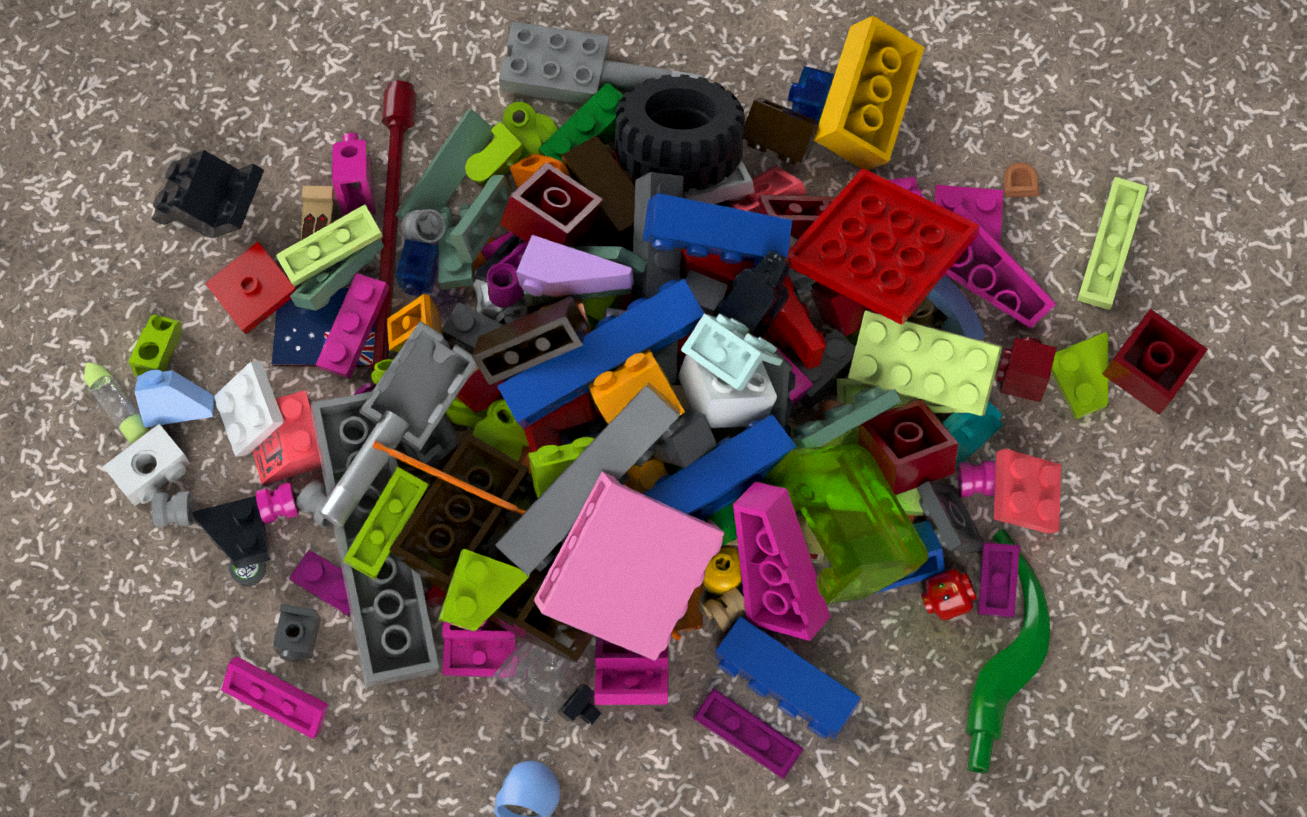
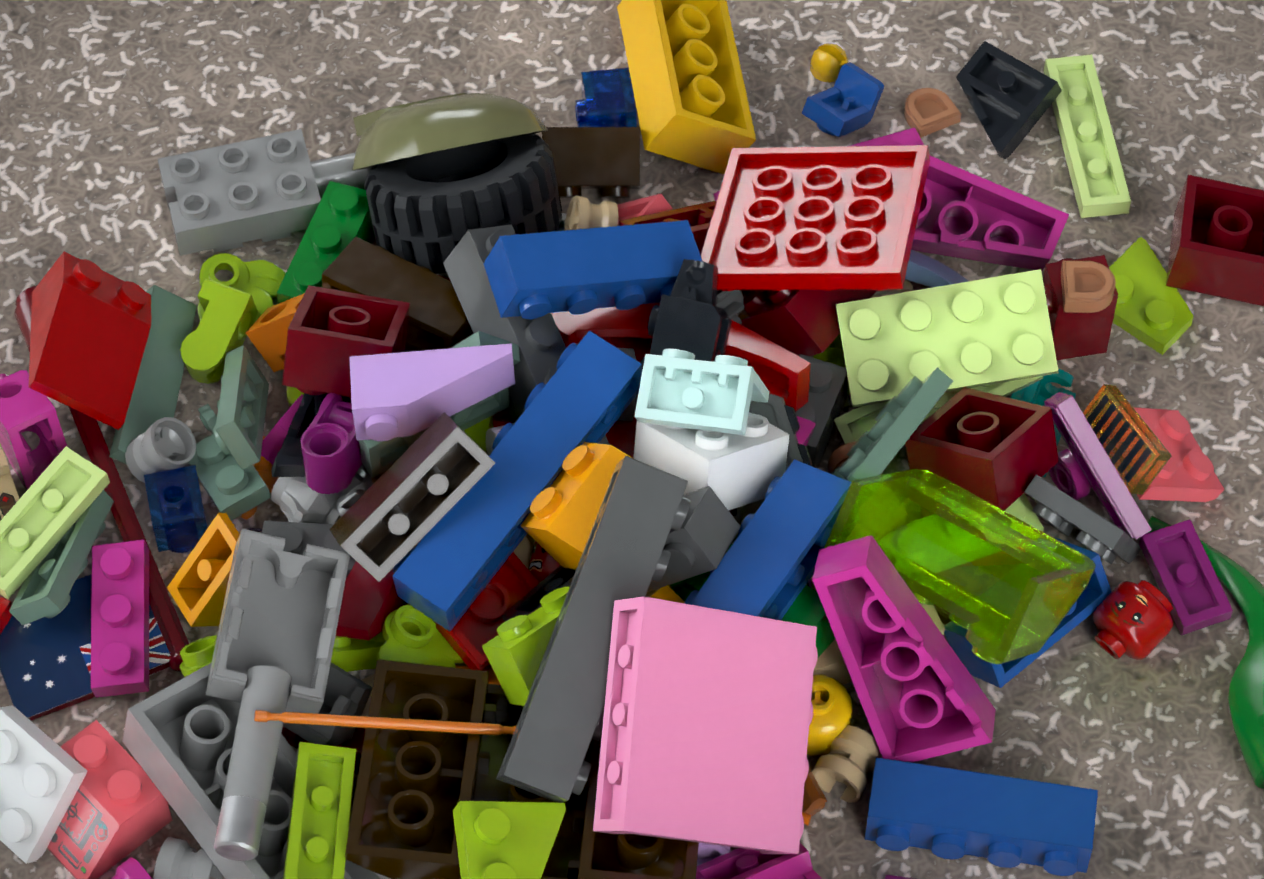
camera: 30 degrees left, 15 degrees down
(410, 135) = (88, 338): none -> red slope
(687, 77) = (439, 126): none -> olive animal
(744, 187) = (586, 215): none -> tan wheel
(965, 155) = (847, 104): none -> blue bracket
(970, 122) = (826, 62): none -> yellow hinge
(975, 487) = (1097, 465): none -> tile
(1000, 478) = (1126, 439): none -> clear yellow tile
(1030, 366) = (1086, 286): none -> nougat tile
(1073, 192) = (1006, 95): none -> black wing

